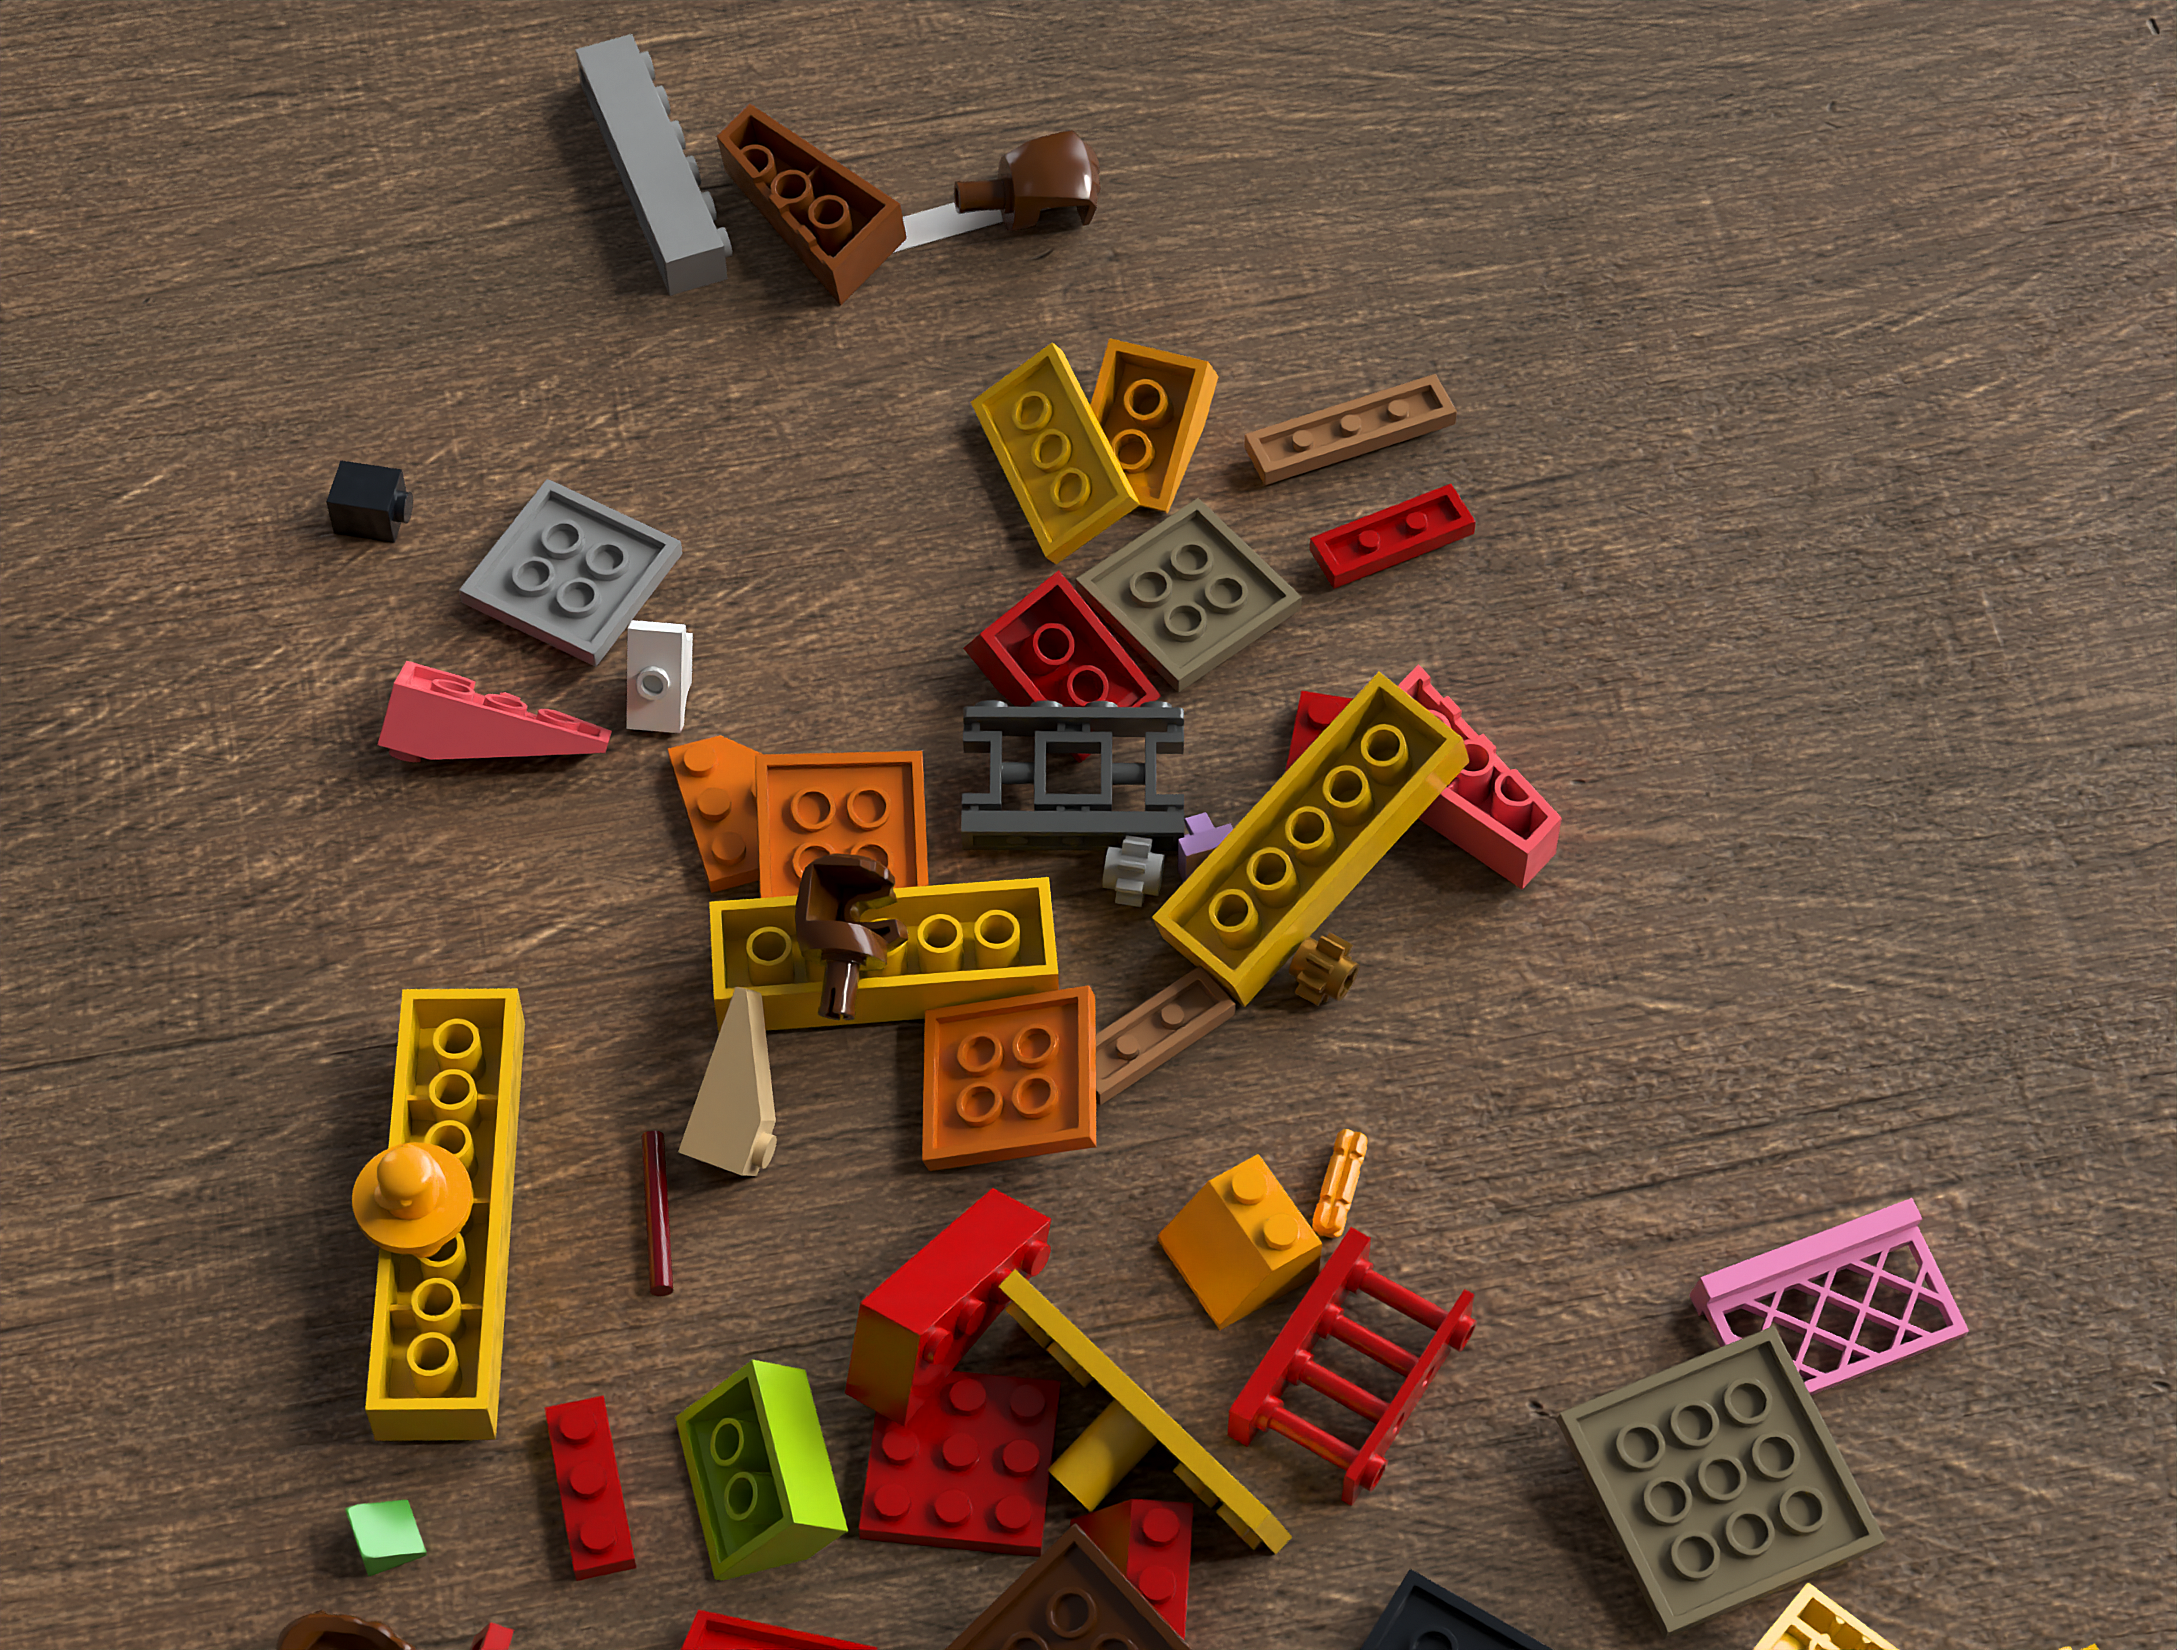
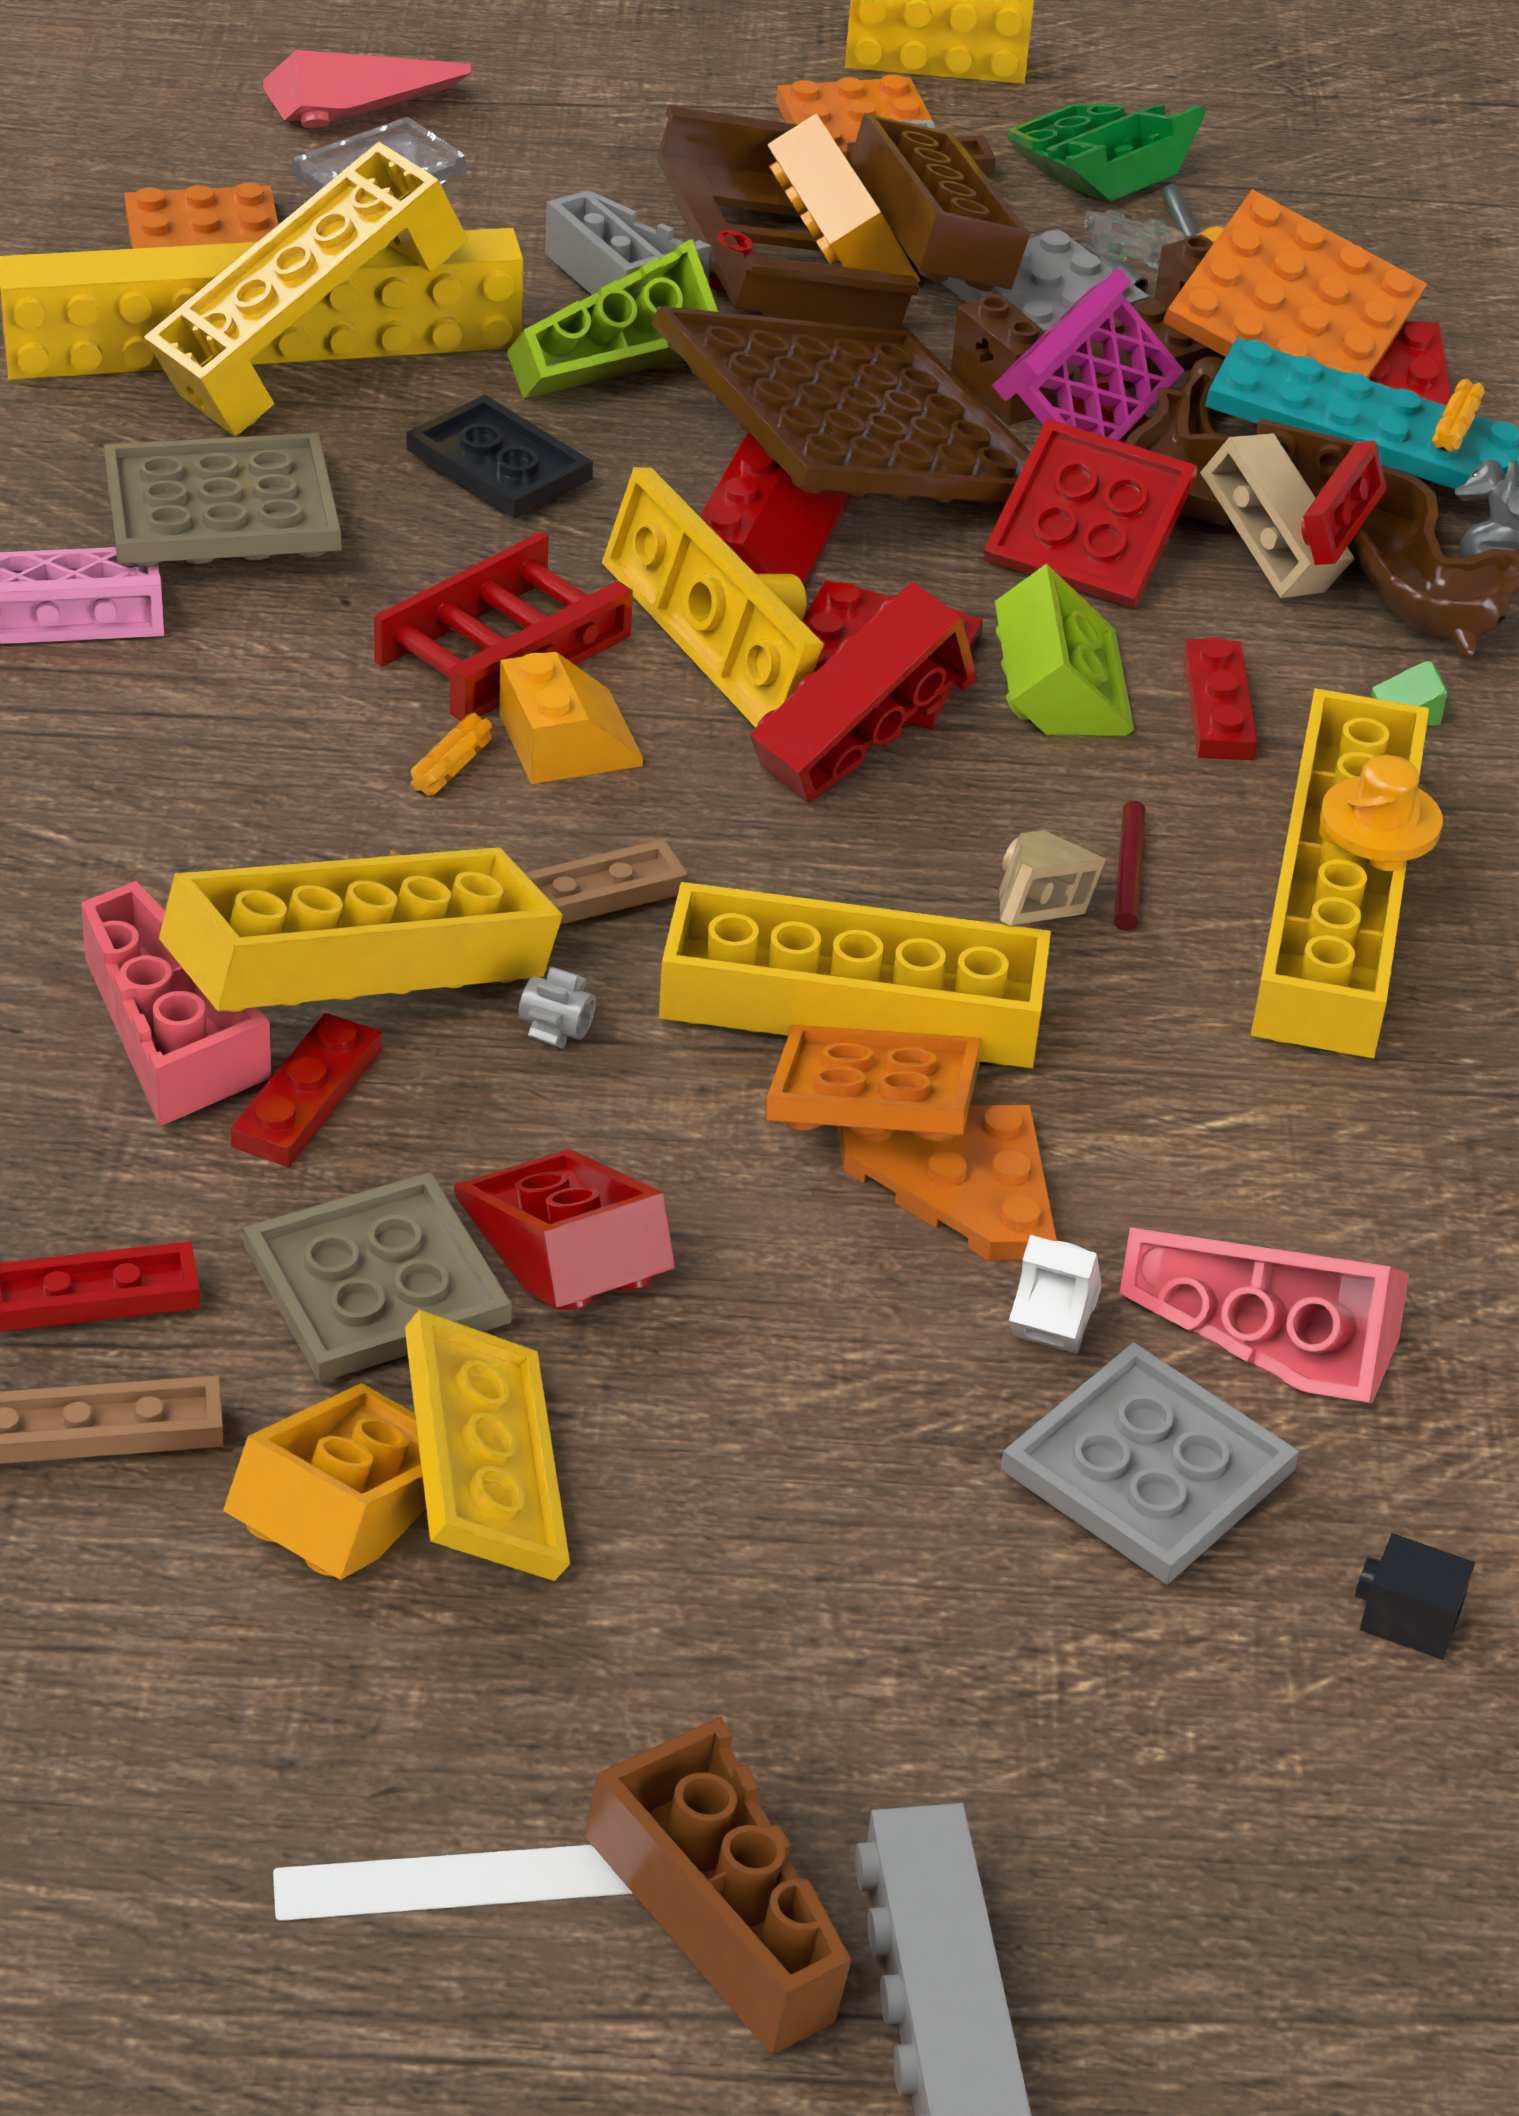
camera: 170 degrees left, 15 degrees down
(829, 927) = (899, 912): reddish brown piece -> none
(1009, 1078) = (749, 841): orange plate -> none
(1037, 176) = (371, 1818): reddish brown piece -> none
(1071, 819) = (593, 1091): dark grey fence -> none
(1198, 843) = (468, 1014): lavender tile -> none

